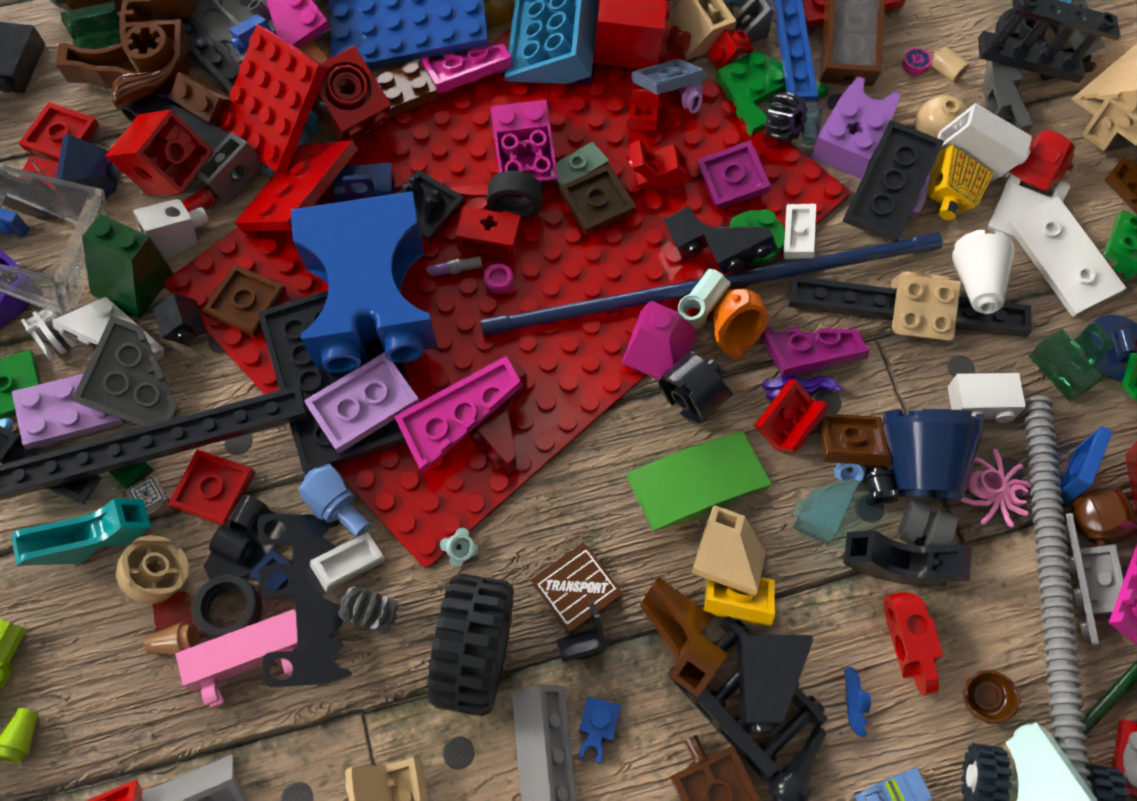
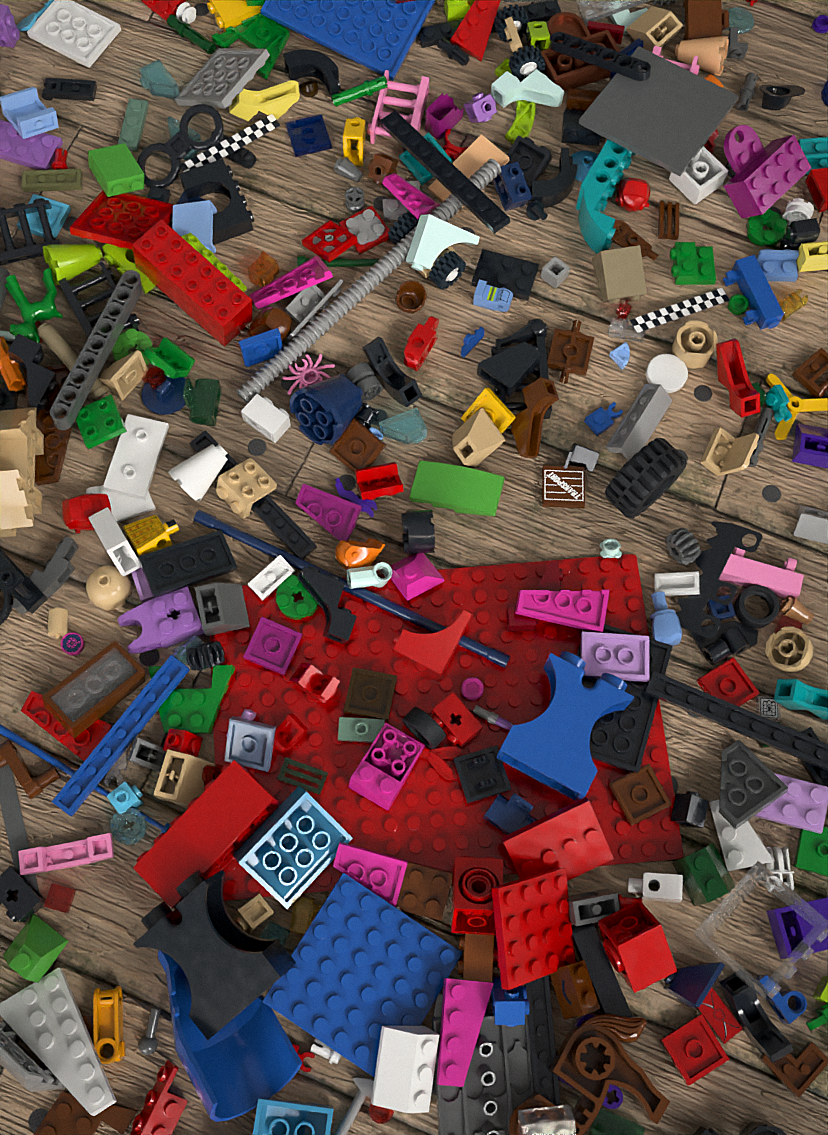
camera: 145 degrees left, 5 degrees up
(575, 275) = (434, 648): none -> red arch
(595, 91) = (284, 769): none -> clear green tile
(817, 165) = (221, 608): none -> dark grey slope

